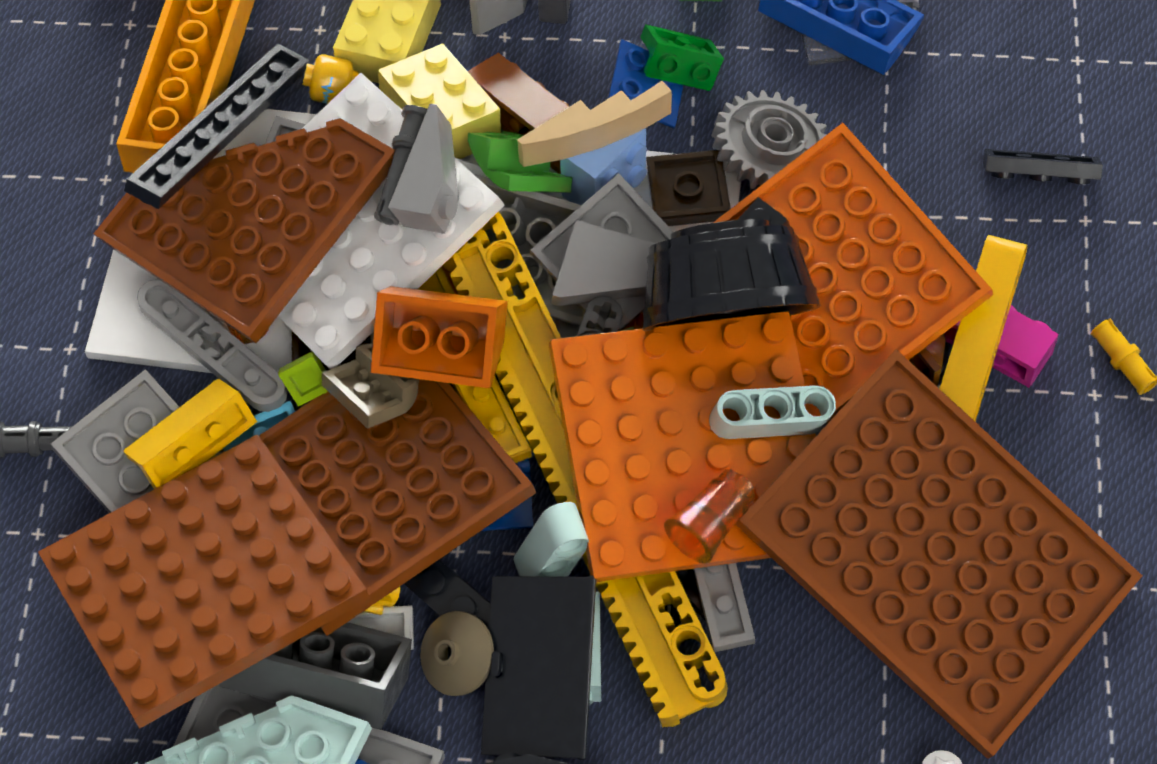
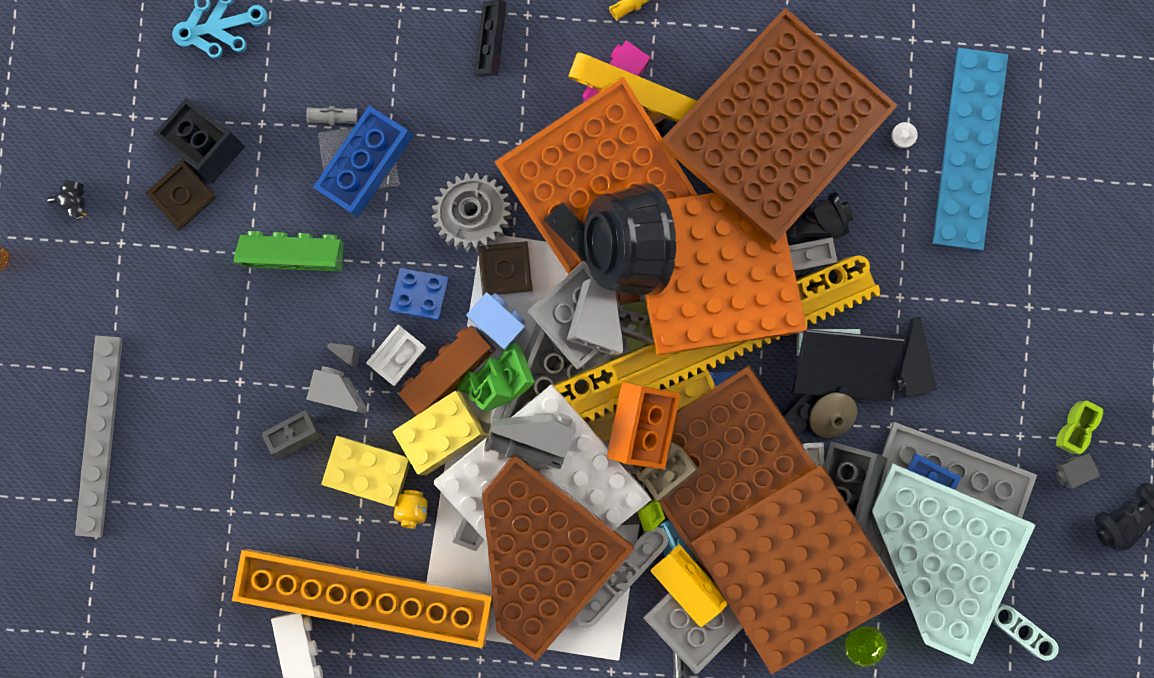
camera: 85 degrees left, 25 degrees up
(69, 706) = (866, 646): none -> clear neon green piece
(215, 127) = (469, 579): plate -> none
(553, 543) = (777, 357): light aqua beam -> none
(556, 60) = (396, 355): none -> white plate
(585, 130) = (493, 333): tan slope -> none
(681, 58) = (400, 270): green bracket -> none
(710, 516) = (774, 257): clear orange plant -> none
(782, 631) = (822, 221): none -> black animal
(786, 400) = (710, 207): light aqua beam -> none

